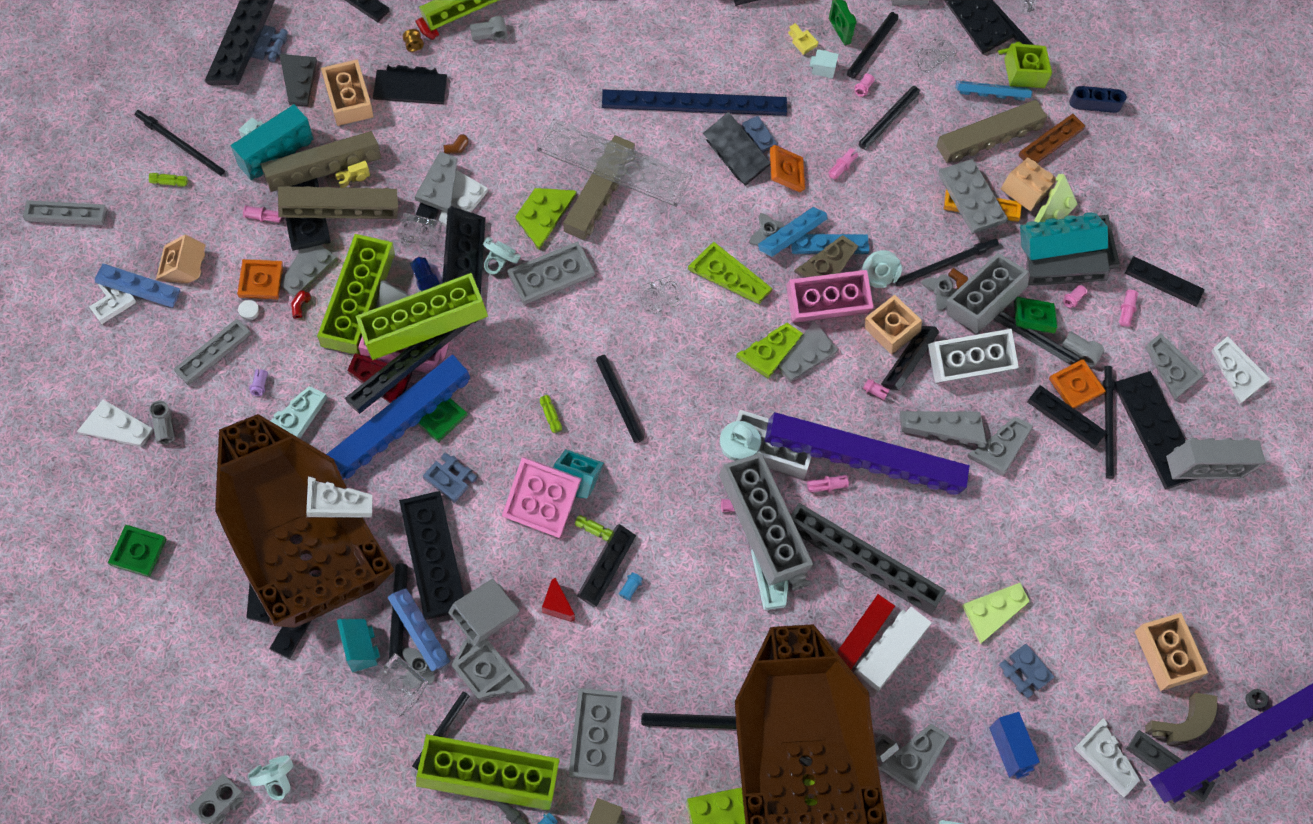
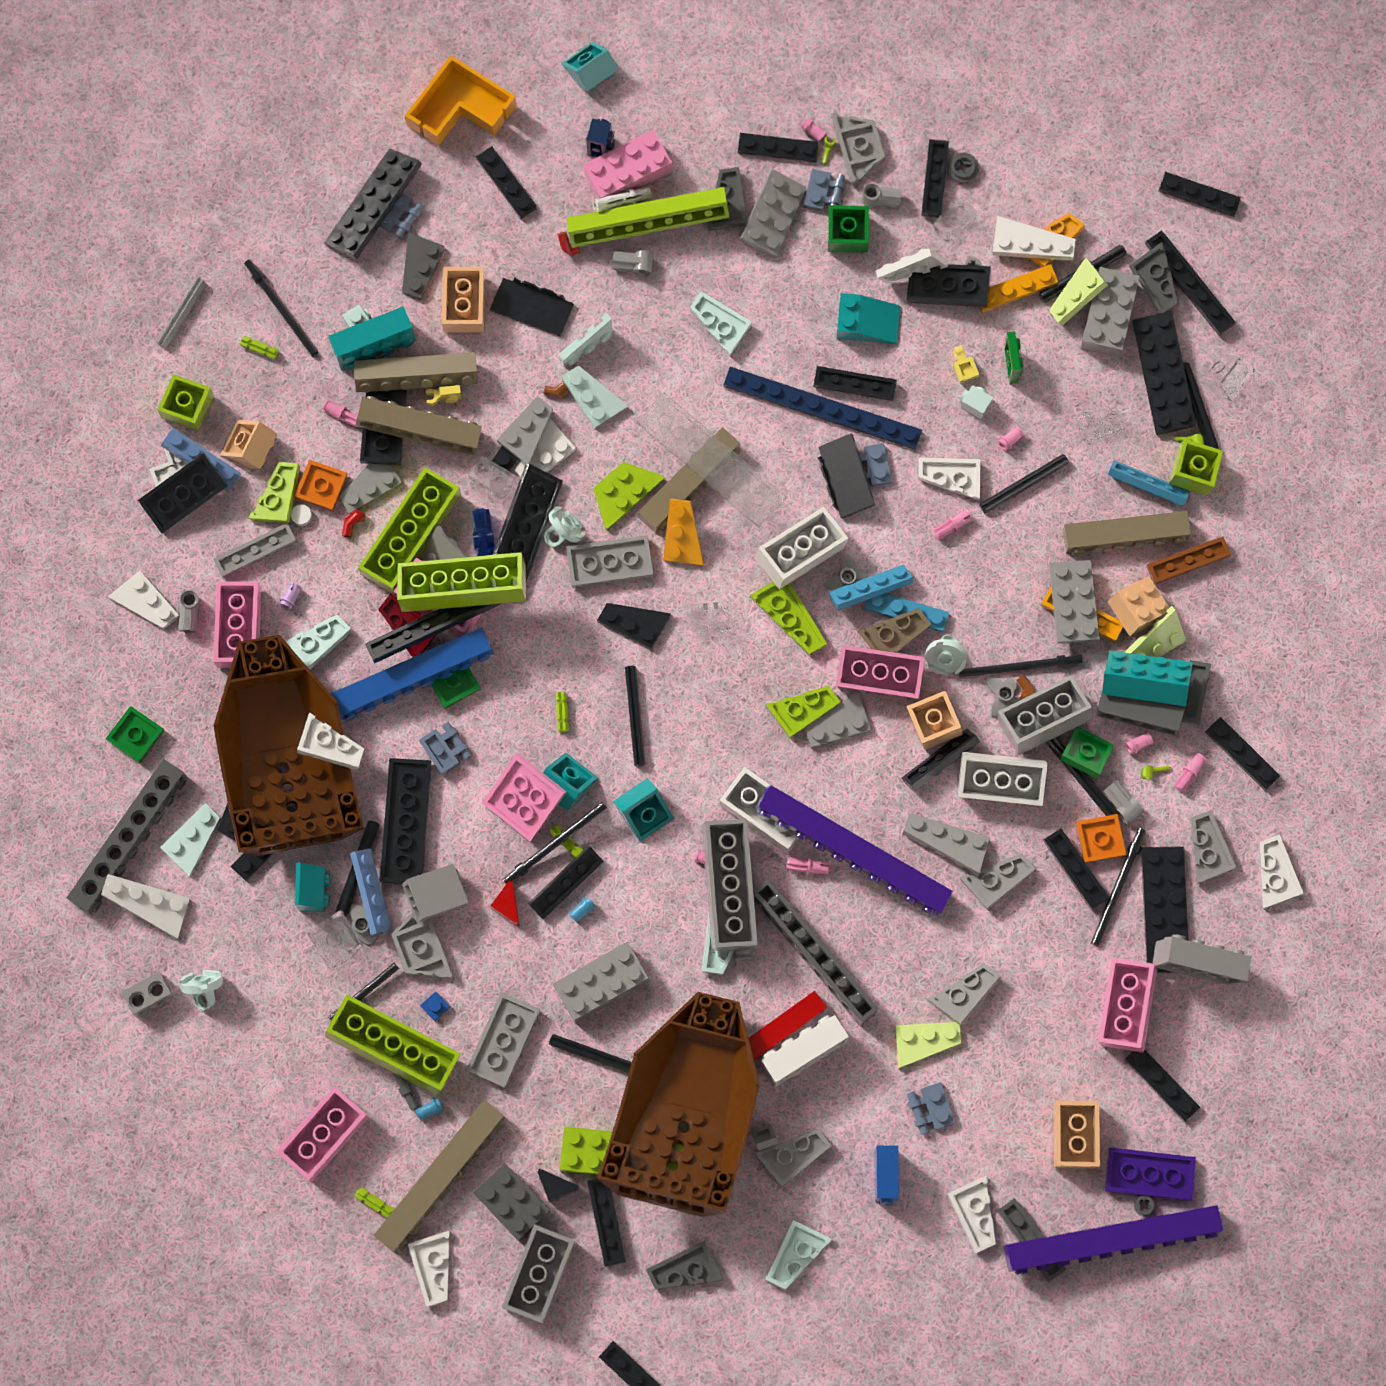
camera: 25 degrees right, 10 degrees up
(65, 212) = (149, 356): light grey plate -> none
(85, 169) = (181, 312): none -> light grey axle
(109, 240) = (185, 402): none -> lime brick
(118, 722) = (91, 877): none -> dark grey brick
(127, 317) = (183, 493): none -> black plate
(193, 708) = (154, 905): none -> white wing
(209, 410) = (235, 618): none -> bright pink brick
(221, 636) = (190, 840): none -> light aqua wing
(222, 298) = (279, 496): none -> lime wing
(413, 40) = (550, 254): pearl gold wheel -> none
(476, 91) = (593, 336): none -> light aqua wing
(489, 142) = (592, 397): none -> light aqua wing
(516, 722) = (435, 1006): none -> blue plate
(560, 565) = (522, 868): none -> black bar
(581, 56) = (720, 321): none -> light aqua wing
(591, 319) = (634, 623): none -> black wing
(609, 232) = (681, 534): none -> light orange wing
(657, 477) = (643, 809): none -> teal slope
(673, 648) = (601, 982): none -> light grey brick
(705, 24) = (867, 319): none -> teal slope
(715, 75) = (855, 383): none -> black plate
(720, 213) = (801, 547): none -> white brick
(739, 440) = (732, 800): light aqua tile -> none
(787, 168) = (890, 515): orange plate -> none
(828, 124) = (952, 474): none -> white wing
(872, 45) = (1040, 391): black axle -> none
(876, 389) = (891, 780): bright pink pin -> none
(1016, 555) = (964, 996): none -> light grey wing
(1092, 318) = (1147, 771): none -> lime hand
(1097, 99) = (1265, 535): dark blue beam -> none
(1166, 519) = (1127, 1005): none -> bright pink brick
(1200, 717) = (1077, 1207): dark tan arch -> none
(1223, 582) = (1162, 1084): none -> black plate
(1250, 668) = (1150, 1174): none -> dark purple plate

